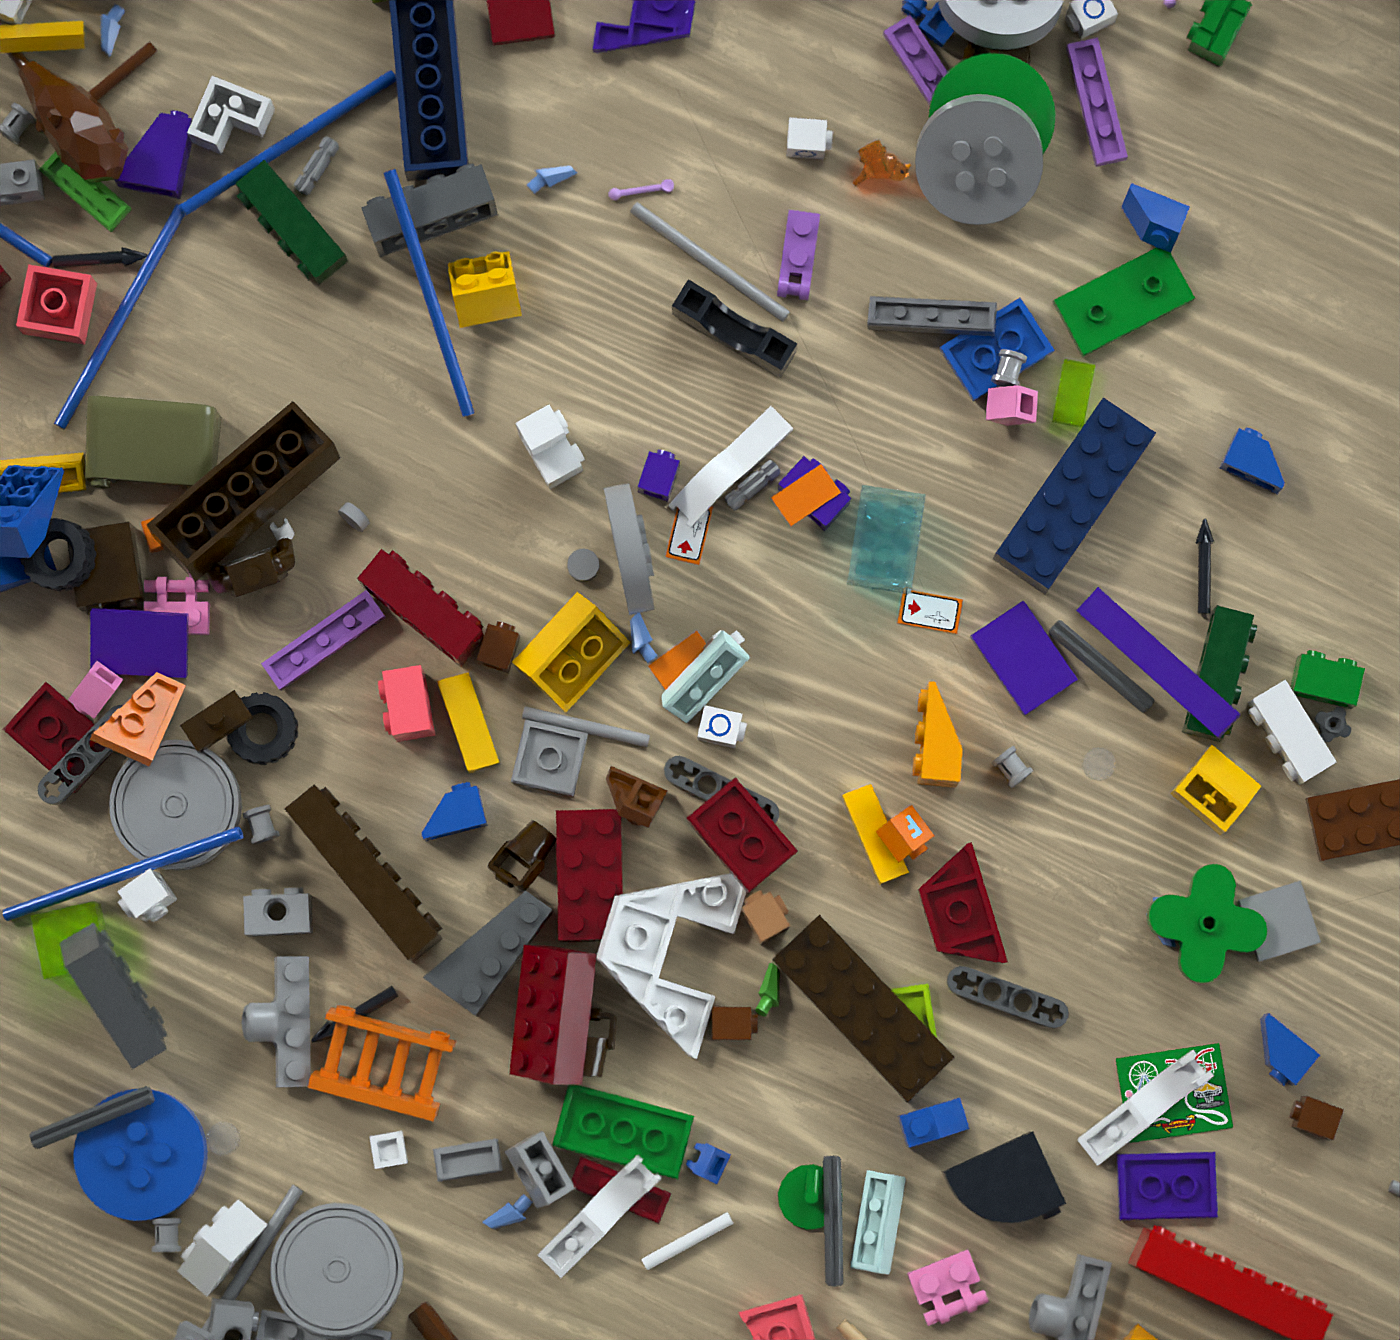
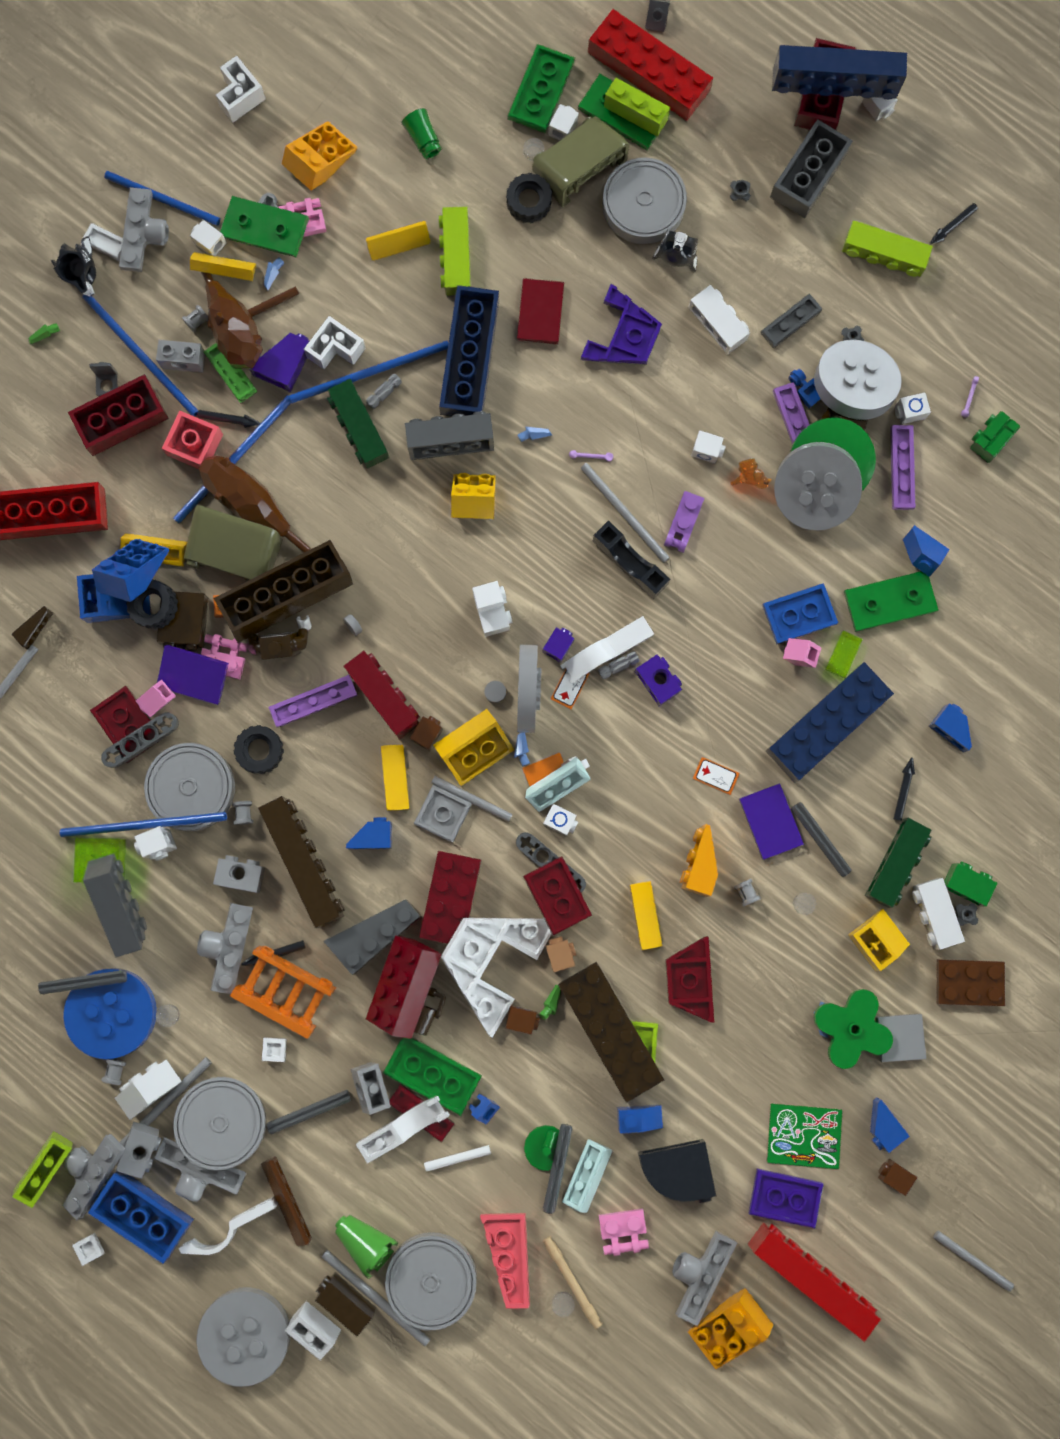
camera: 10 degrees right, 0 degrees up
(142, 720) = (181, 726): orange wing -> none
(154, 367) = (245, 496): none -> reddish brown piece
(216, 721) = (229, 738): dark brown tile -> none
(407, 703) = (357, 756): coral brick -> none
(428, 292) = (436, 491): blue piece -> none
(459, 1226) = (308, 1112): none -> dark grey axle
(467, 1159) = (325, 1068): light grey tile -> none
(509, 1214) = (344, 1111): medium blue bar -> none
(527, 848) = (415, 871): dark brown piece -> none
(634, 797) = (492, 854): reddish brown wing -> none
(806, 495) = (652, 680): orange sticker -> none
(886, 539) = (698, 722): clear light blue brick -> none
(906, 834) = (666, 921): orange brick -> none
(932, 316) = (762, 582): flat silver tile -> none
(1006, 1000) = (709, 1043): dark grey beam -> none
(1008, 368) = (806, 627): light grey bush -> none
(1144, 1107) = (782, 1142): white piece -> none
(1158, 663) = (860, 847): dark purple tile -> none

